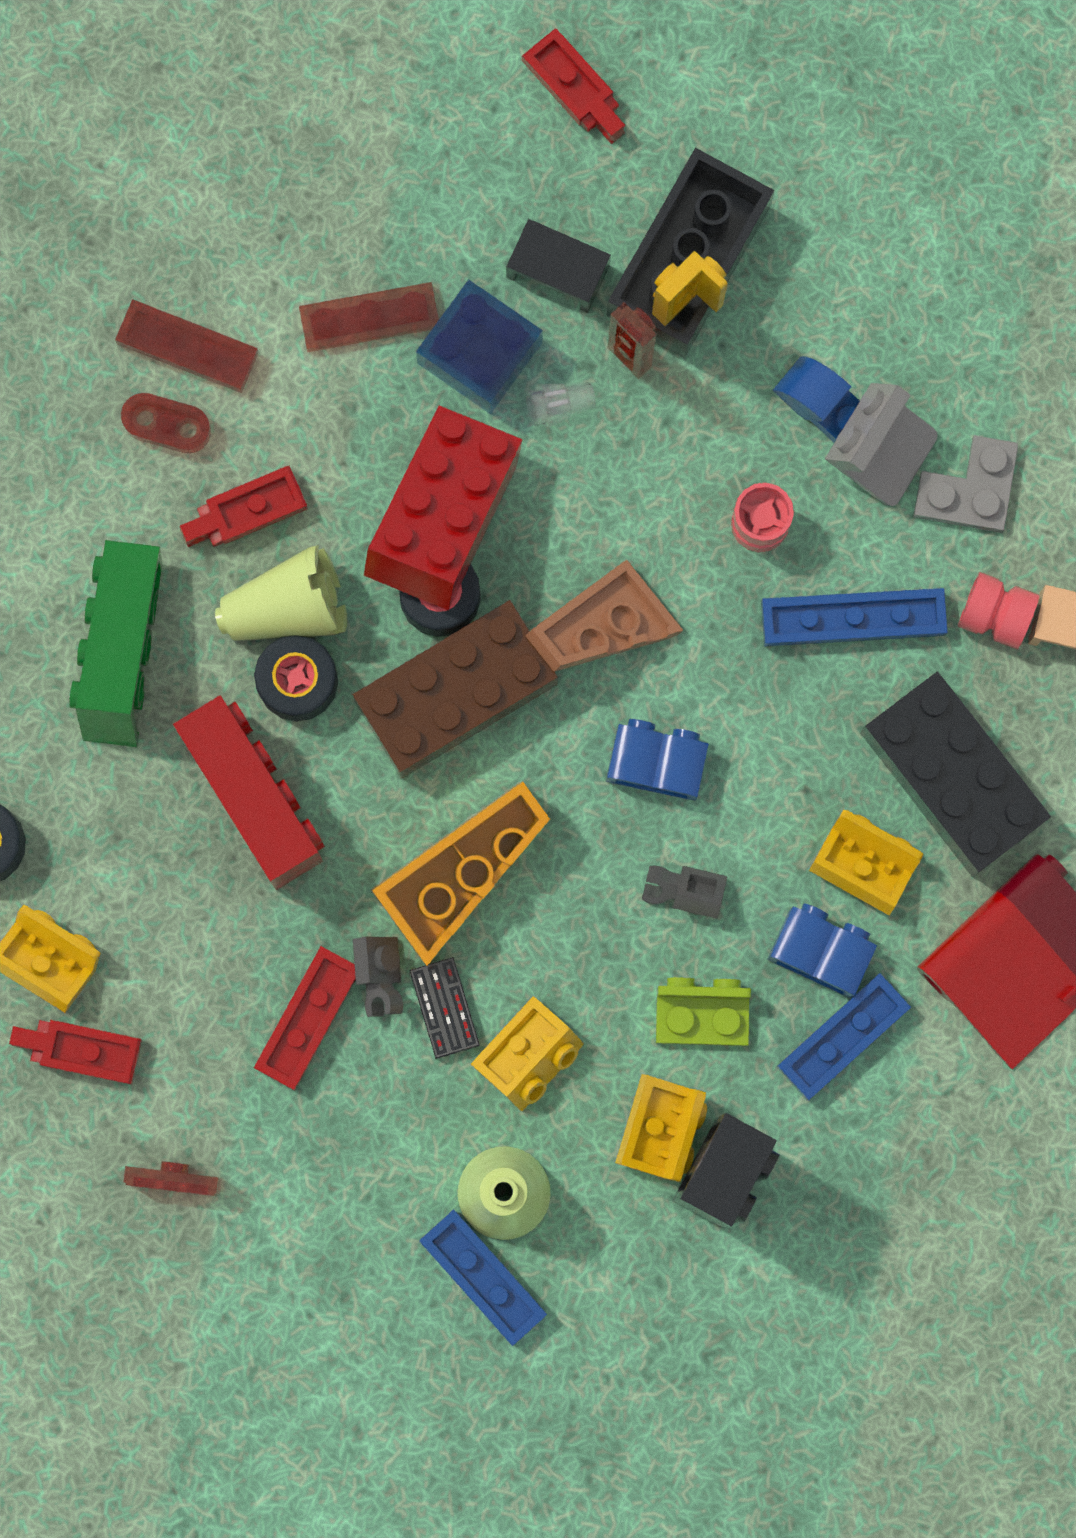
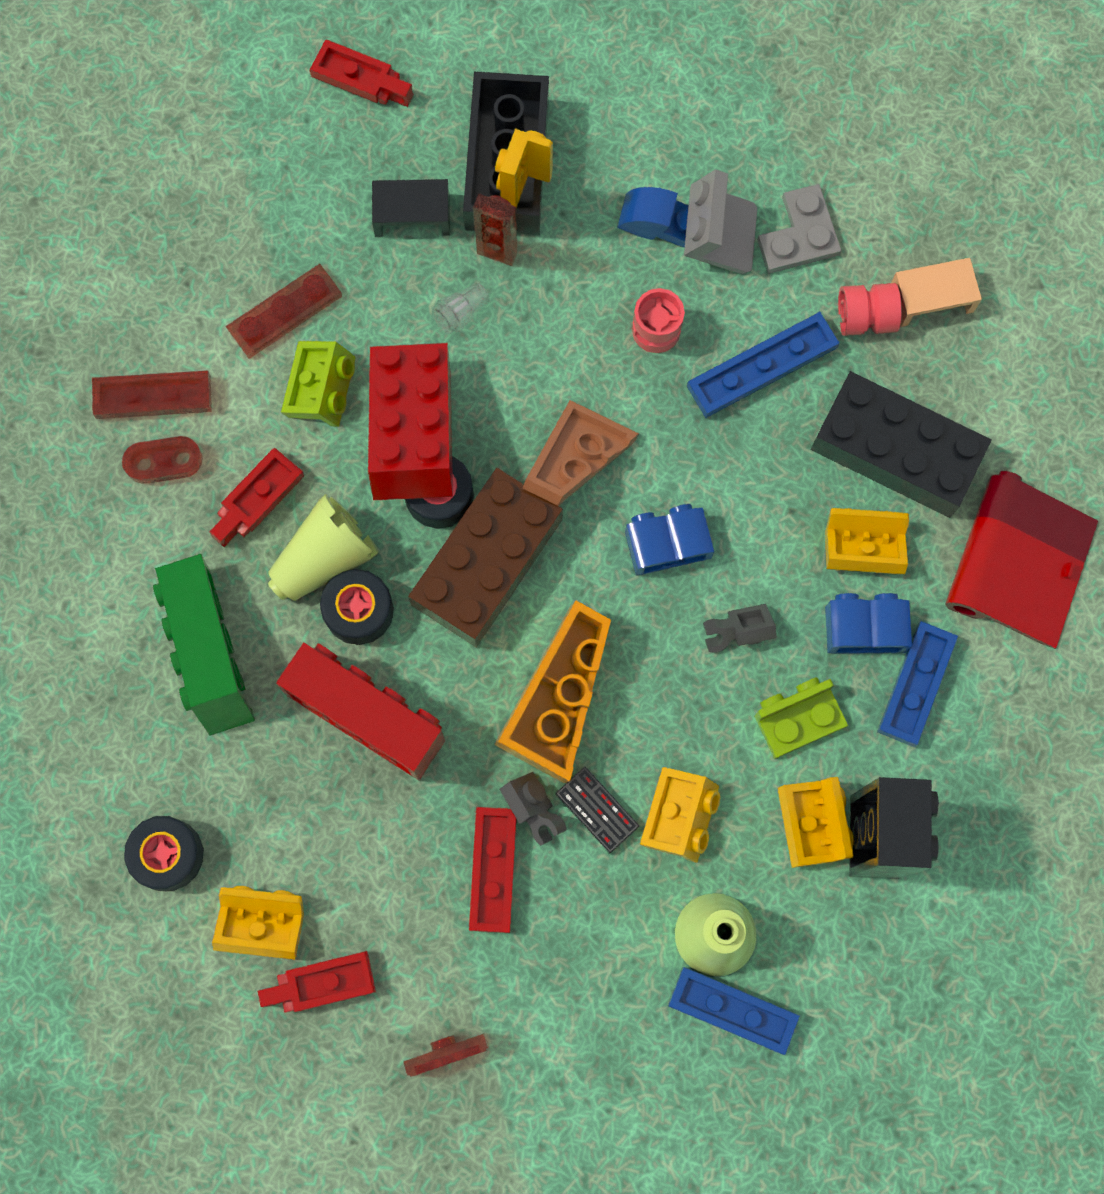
camera: 25 degrees left, 5 degrees down
(369, 414) = (319, 382): none -> lime bracket
(479, 346) = (379, 292): clear blue brick -> none

